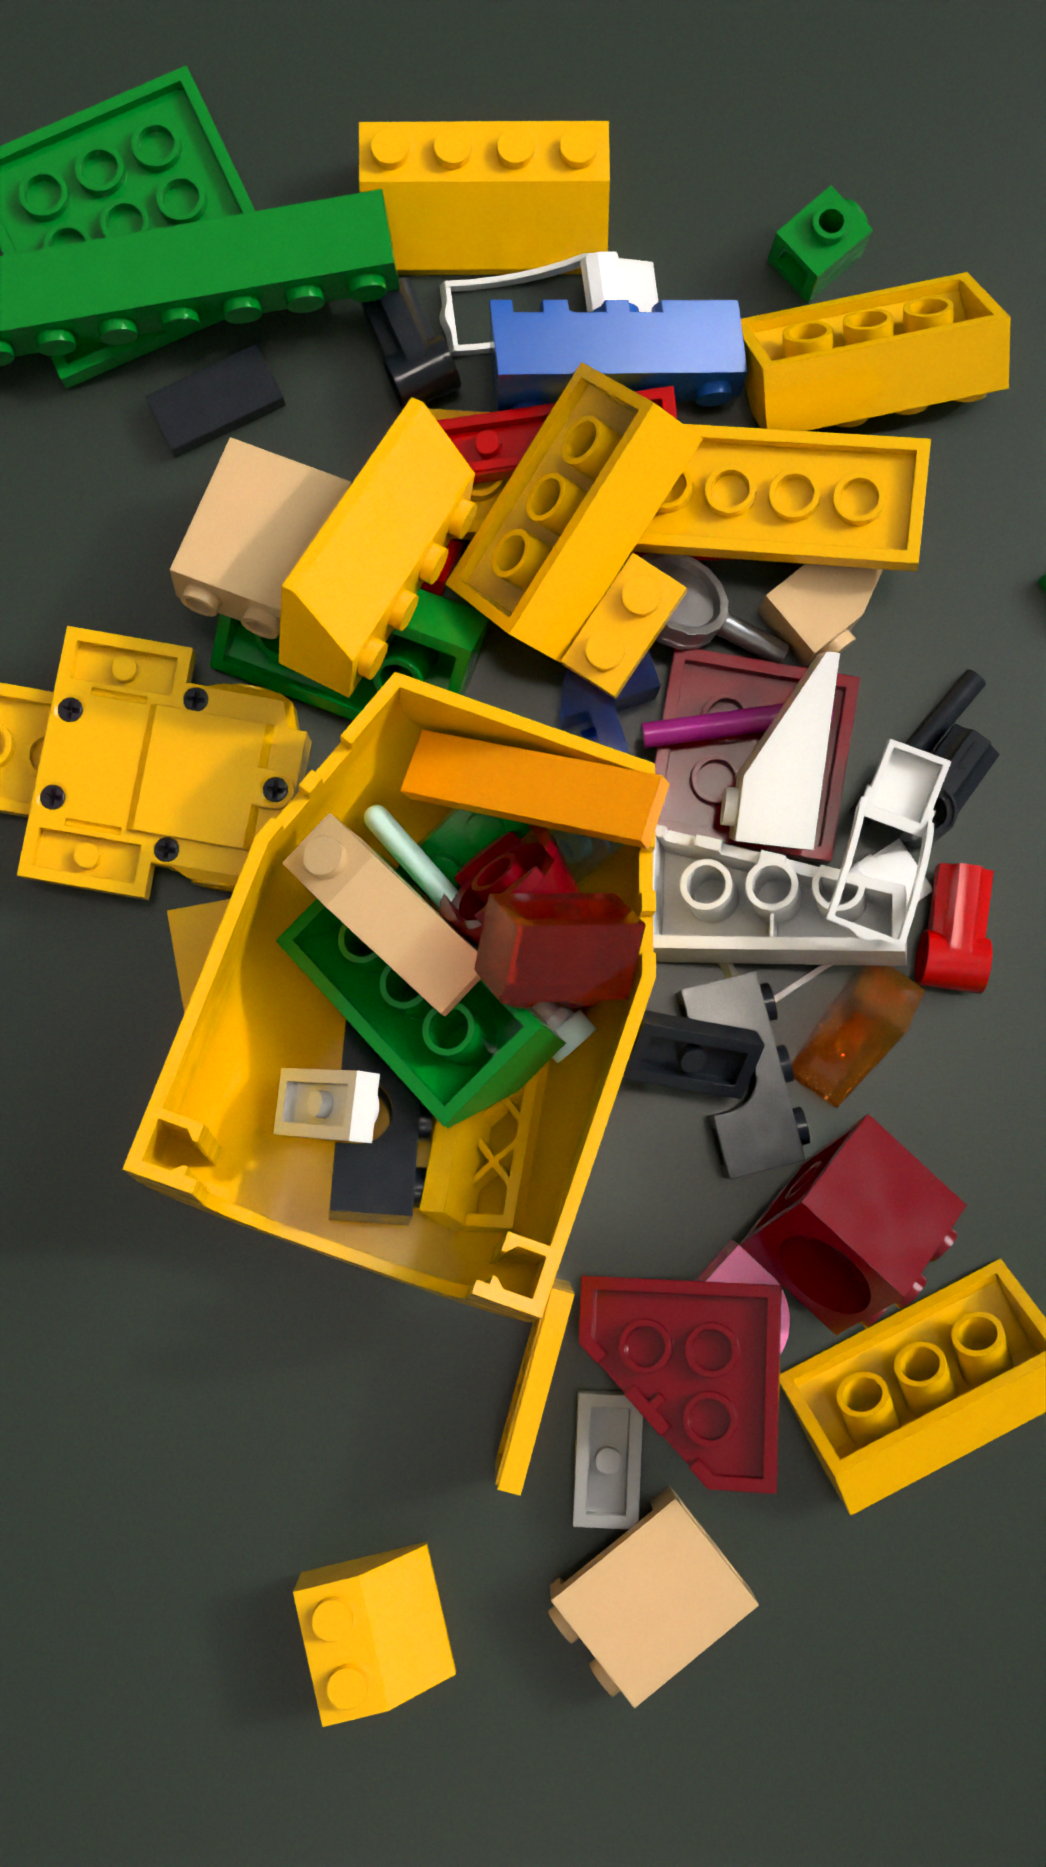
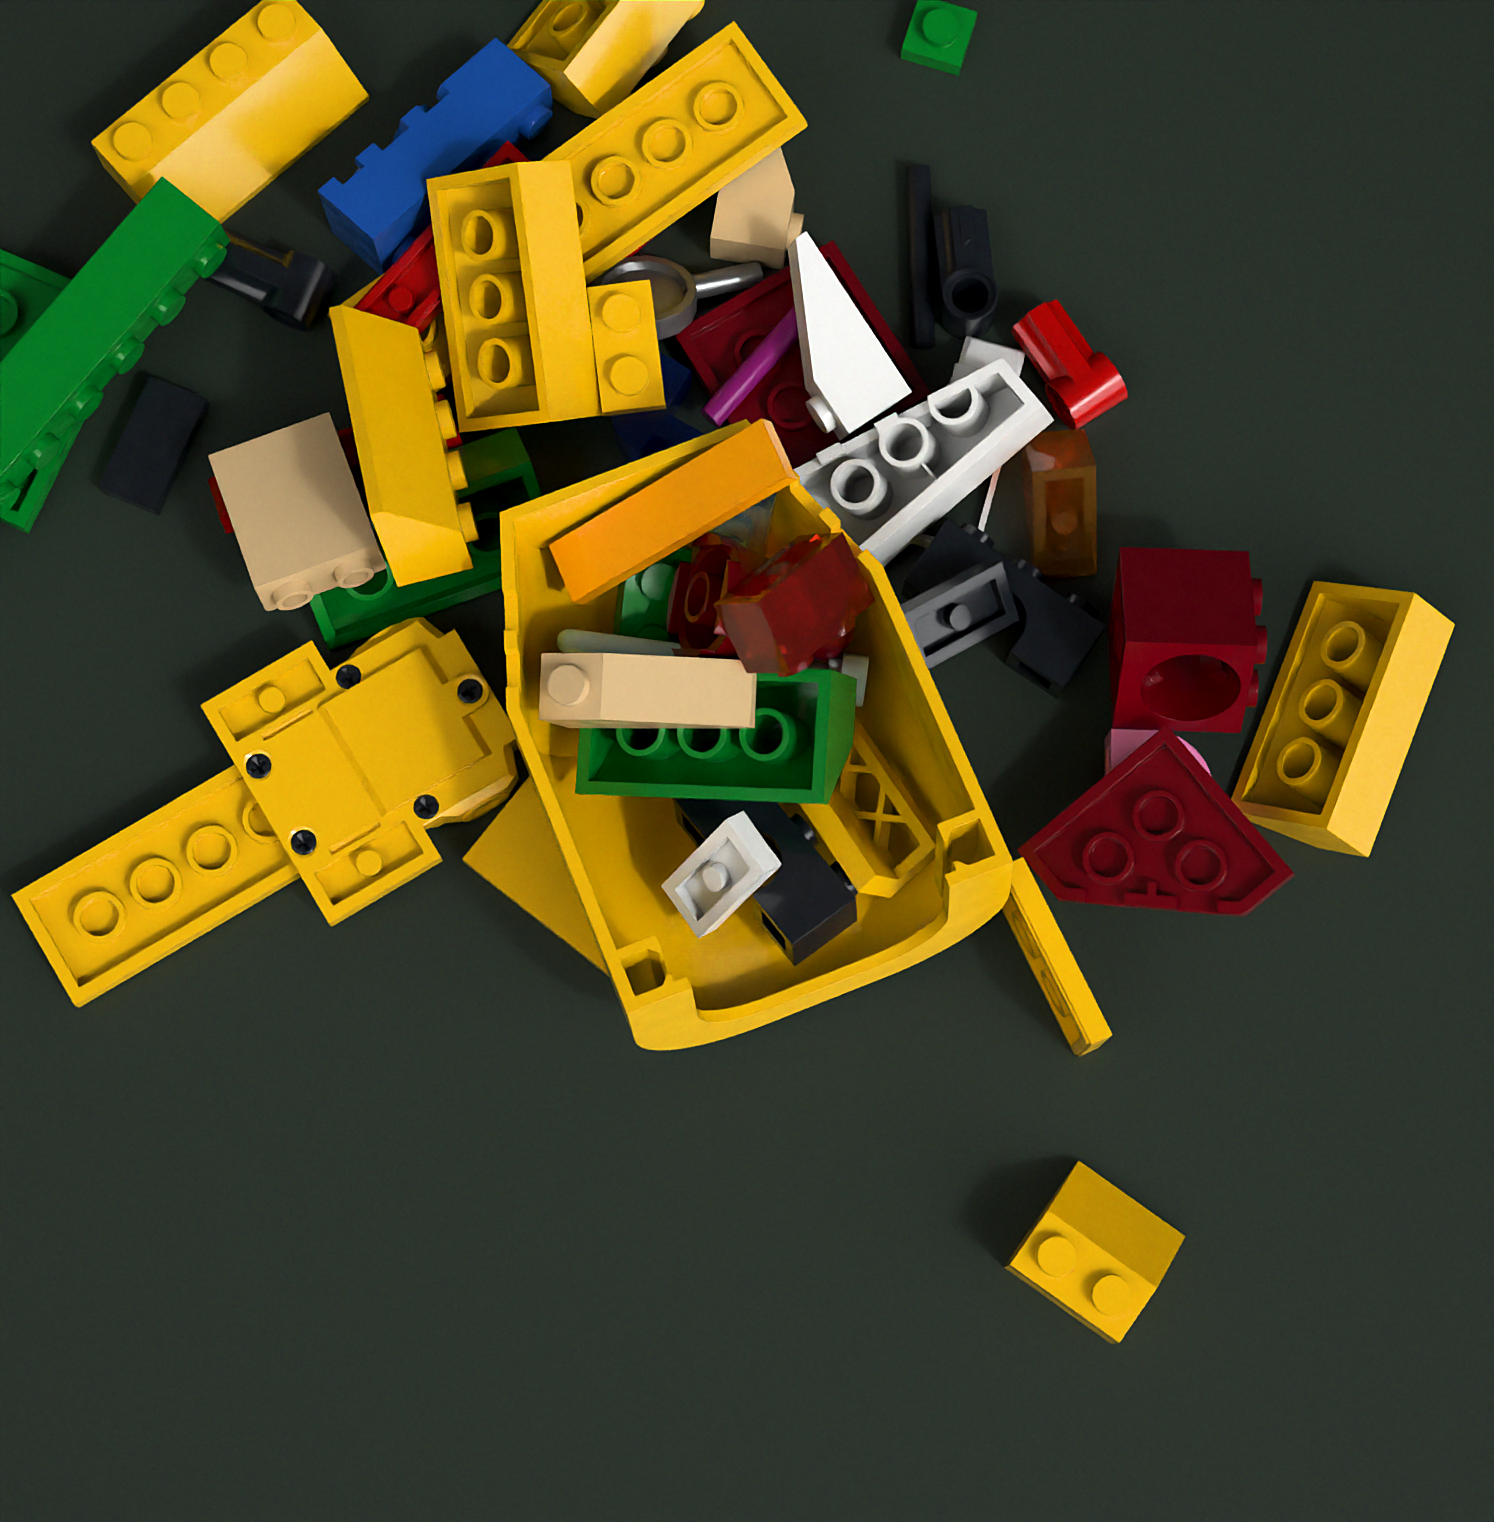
camera: 35 degrees left, 5 degrees down
(603, 279) = (377, 103): white piece -> none
(606, 1461) = (1156, 976): light grey plate -> none
(651, 1600) = (1278, 1047): tan panel -> none
(902, 798) = (943, 300): white piece -> none

